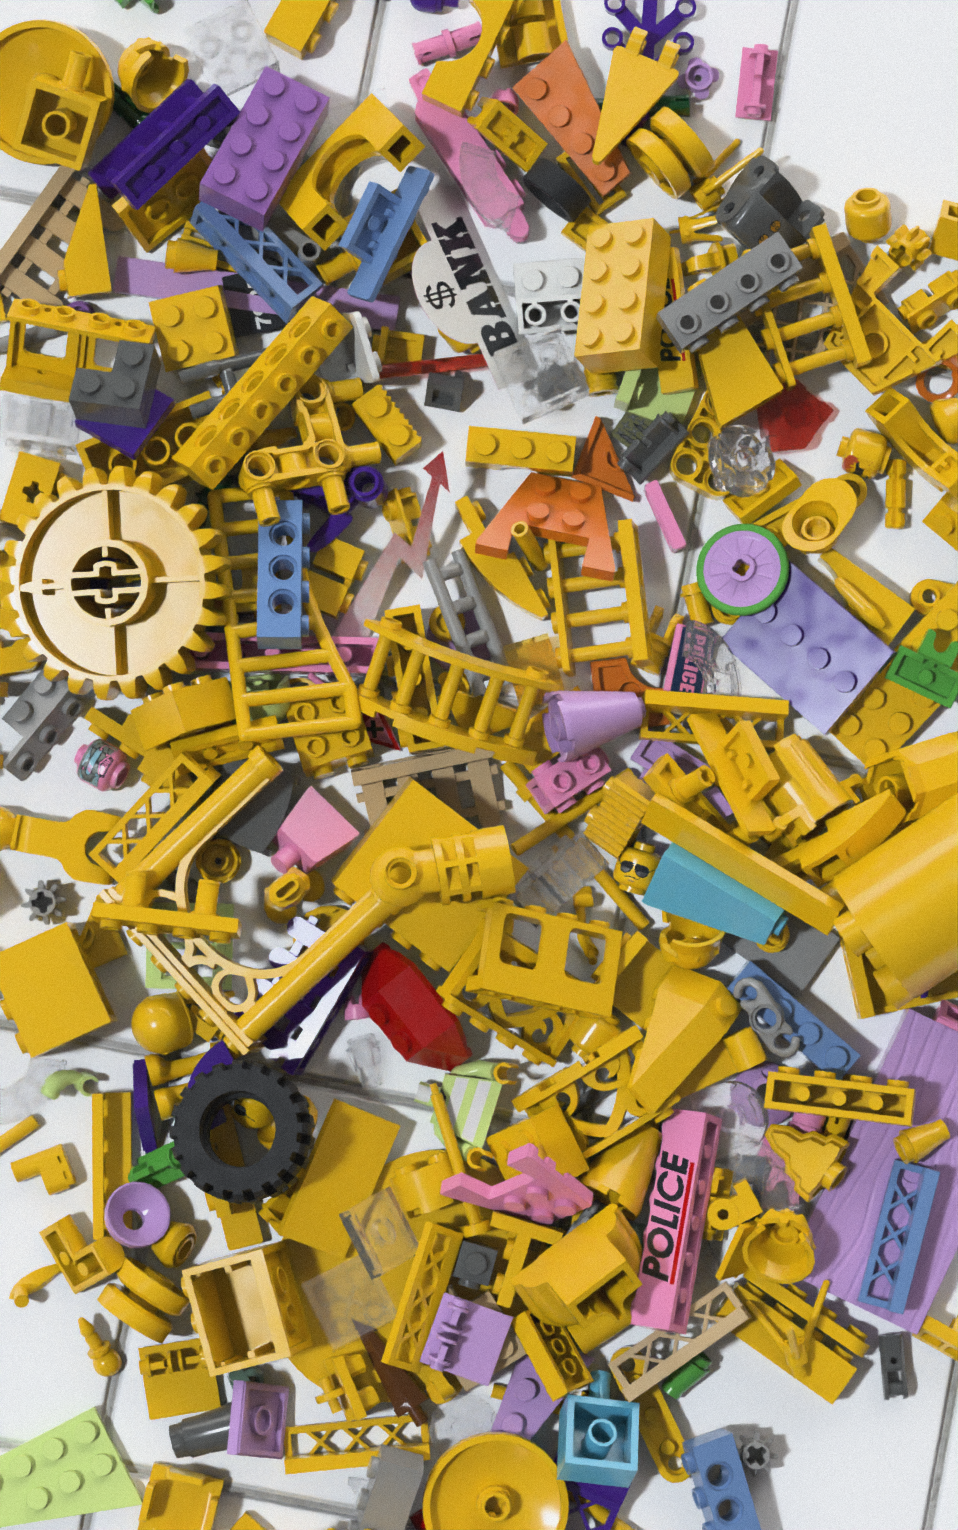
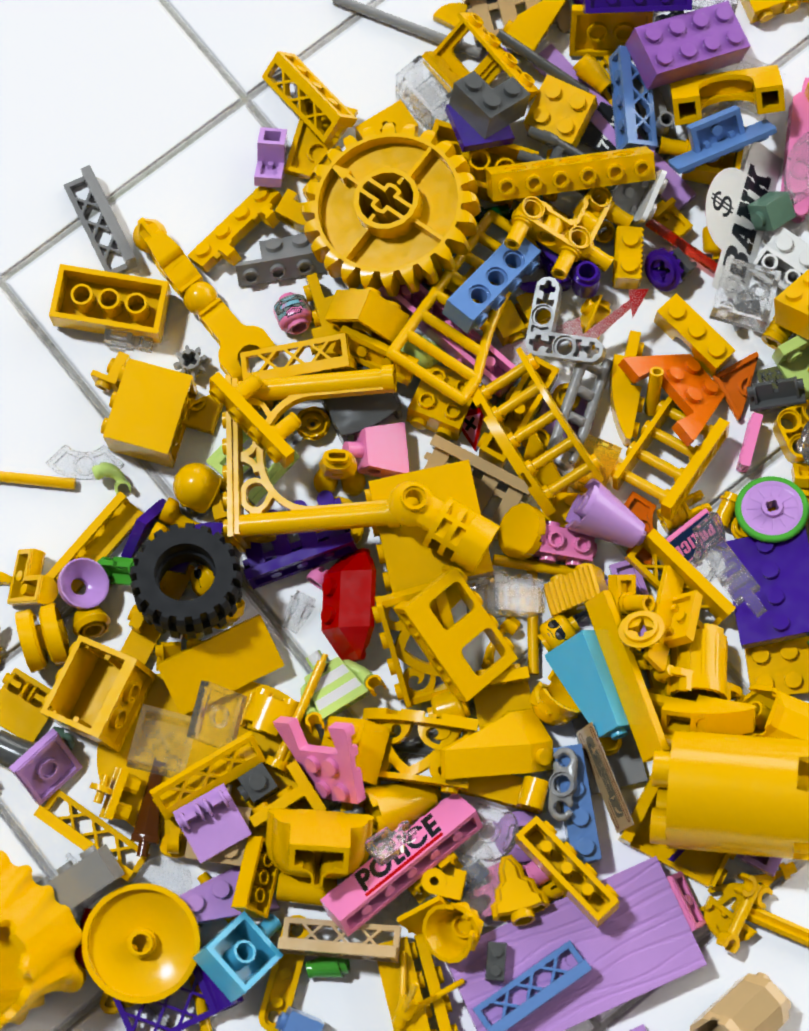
camera: 40 degrees right, 10 degrees down
(52, 1166) = (60, 517): yellow piece -> none
(131, 291) = (538, 60): none -> dark grey bar
(375, 574) = (547, 331): none -> light grey beam
(434, 417) = (658, 276): none -> dark purple gear
(492, 255) = (771, 211): none -> sand green brick
(519, 800) = (521, 531): none -> yellow tile
(651, 1218) = (390, 844): none -> clear plate
(708, 809) = (632, 625): none -> yellow gear
(764, 673) = (735, 578): none -> clear piece
(799, 975) = (604, 778): none -> tan sticker
(842, 1238) = (495, 961): none -> dark grey piece
(919, 1141) = (594, 941): yellow cone -> none

